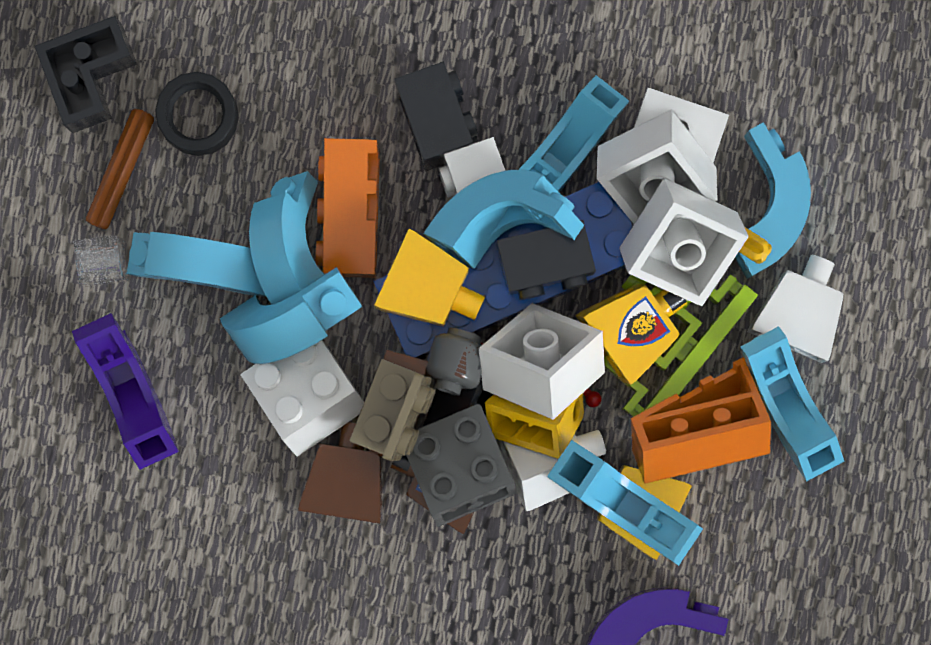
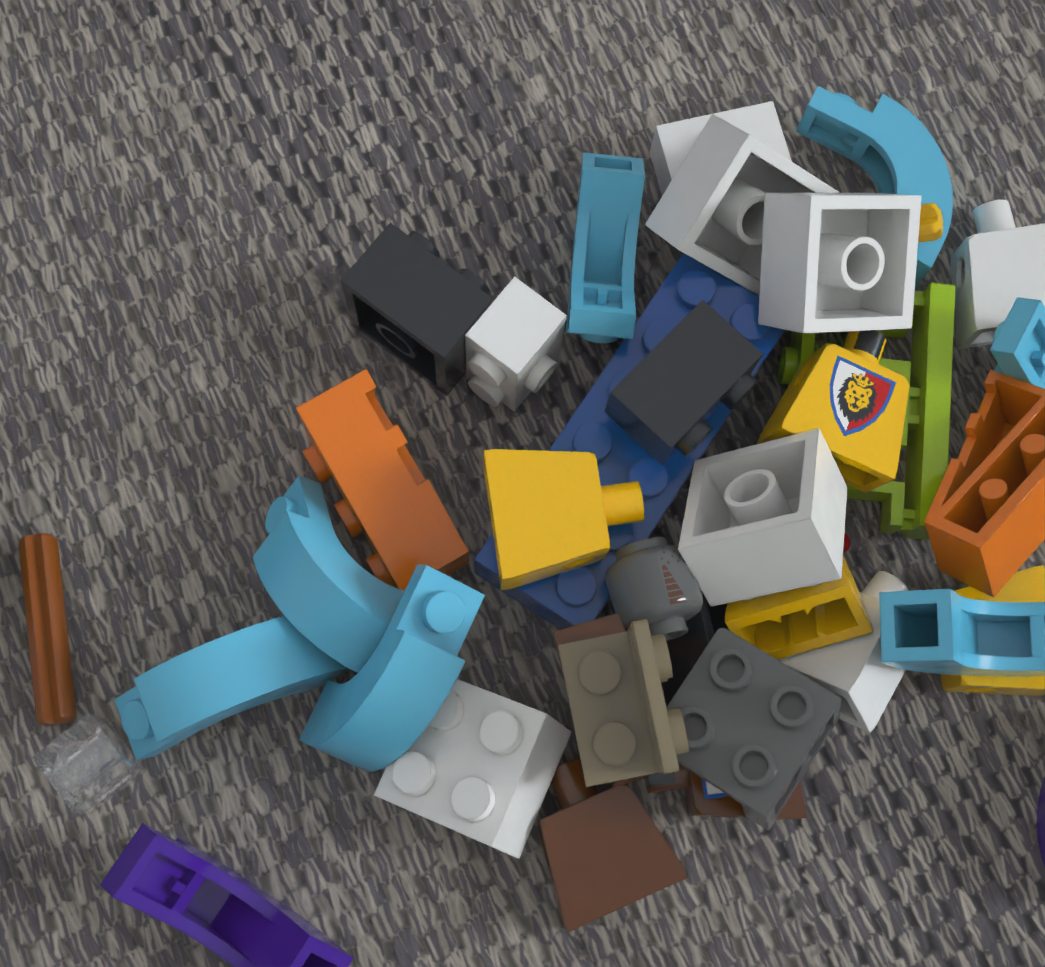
camera: 40 degrees left, 10 degrees down
(183, 84) = (79, 458): black tyre -> none
(494, 205) = (582, 343): medium azure arch -> none

